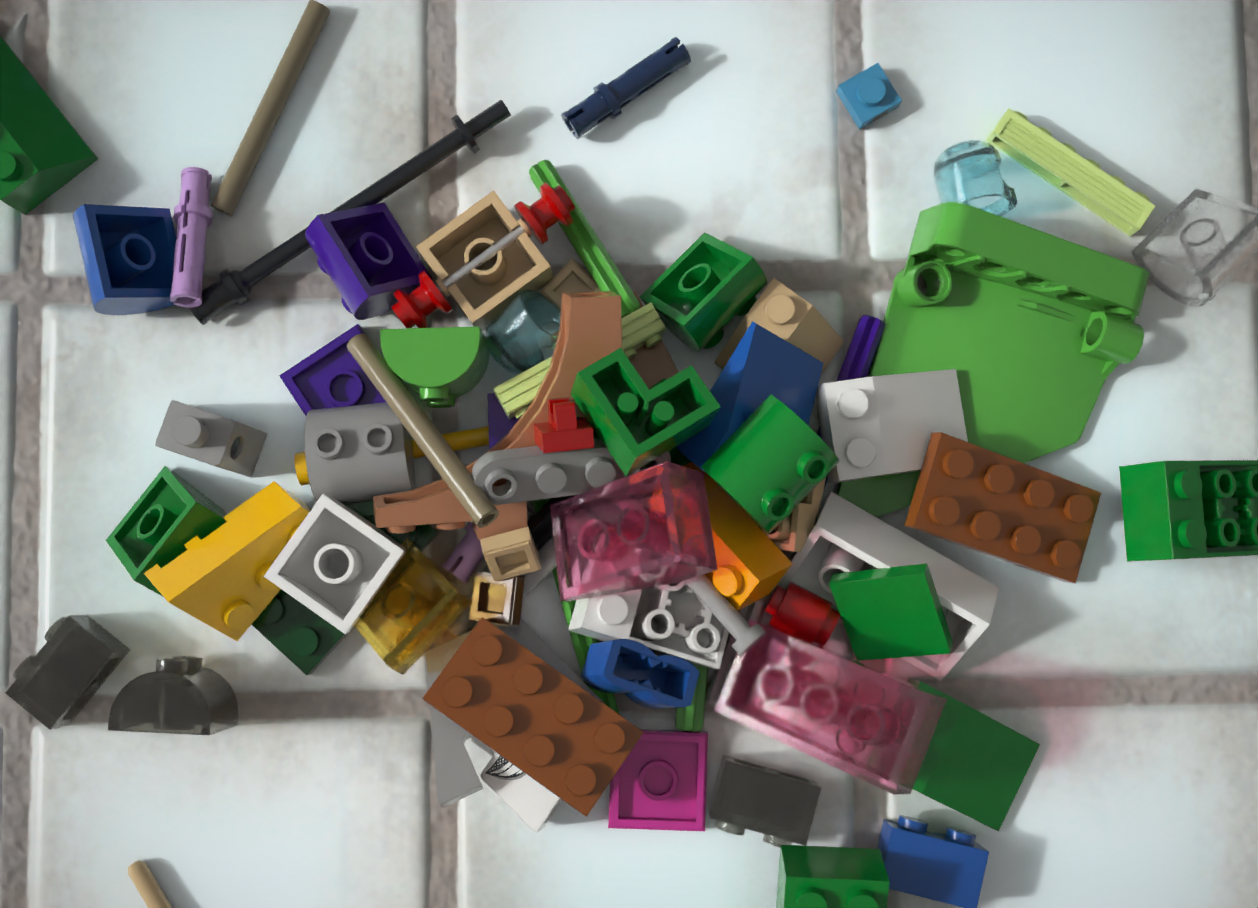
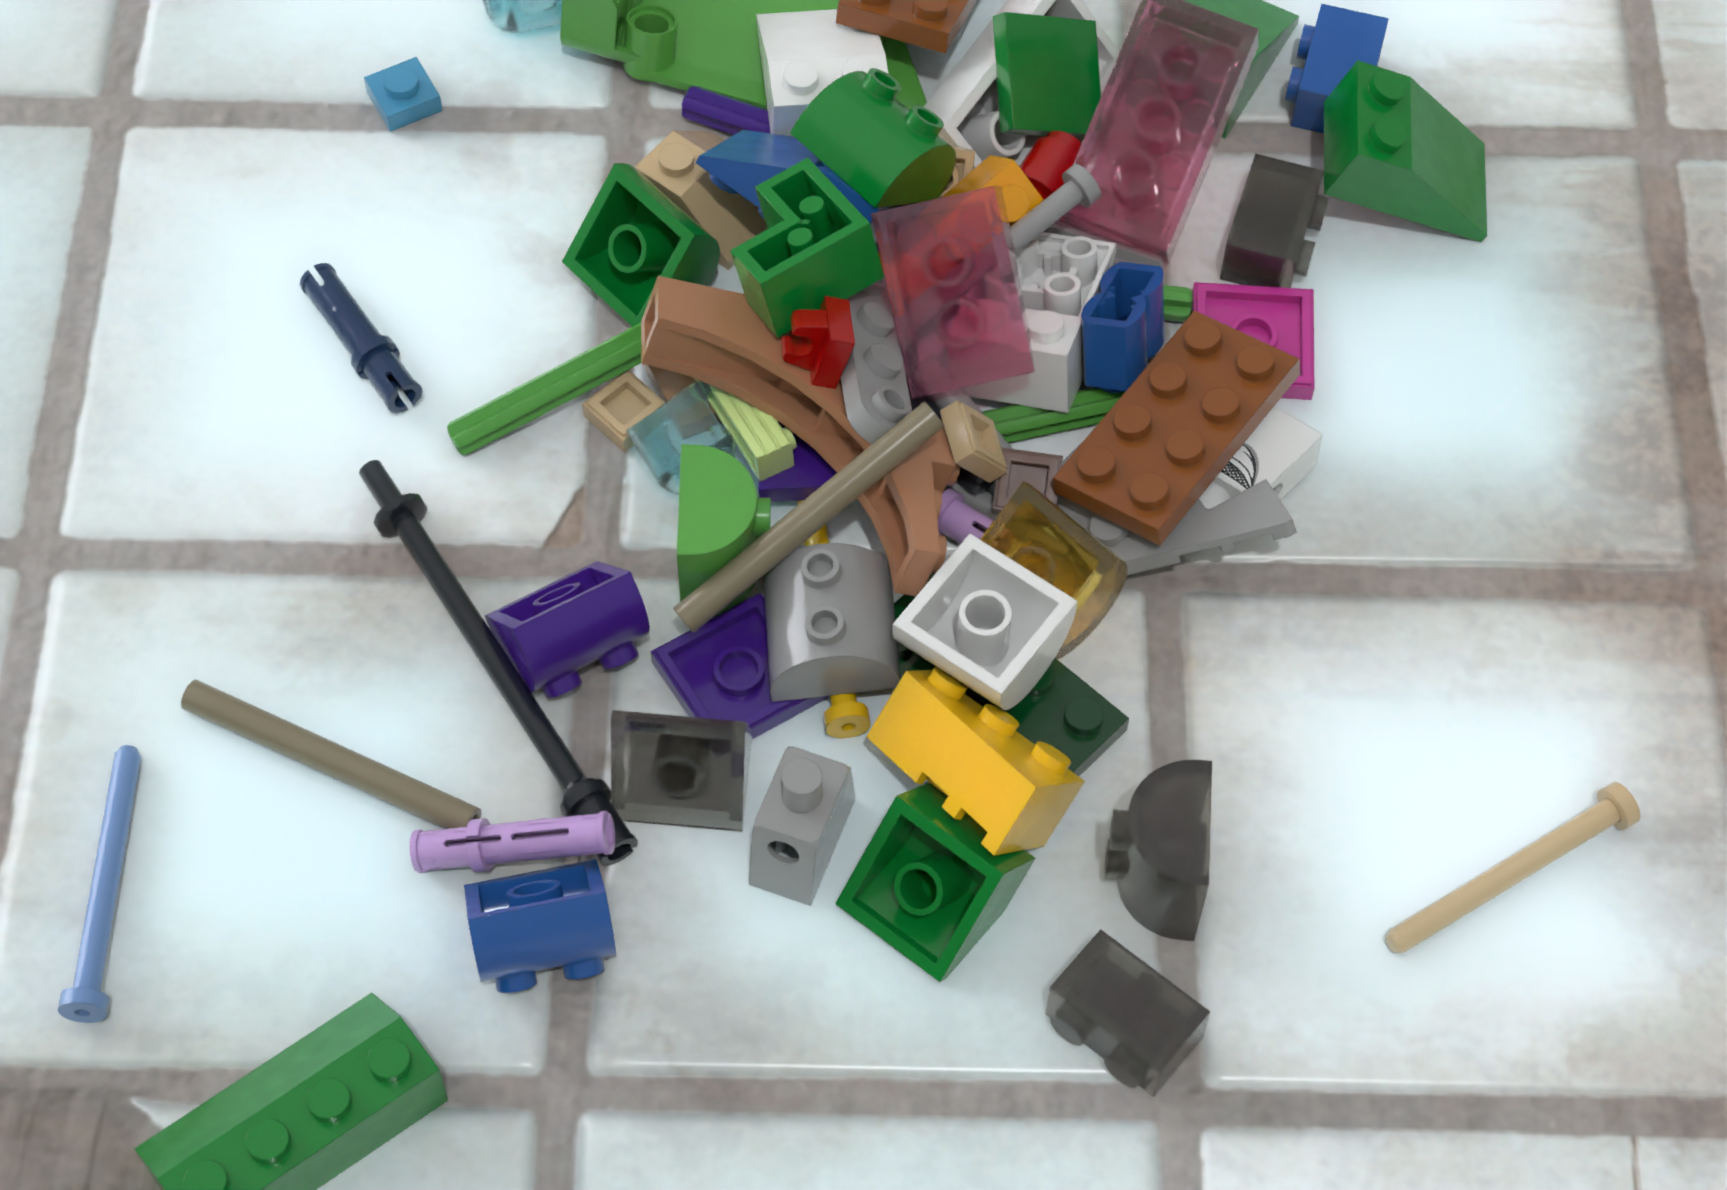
camera: 90 degrees left, 25 degrees down
(260, 349) = (680, 770): none -> clear smoke slope
(485, 259) = (581, 475): tan brick -> none

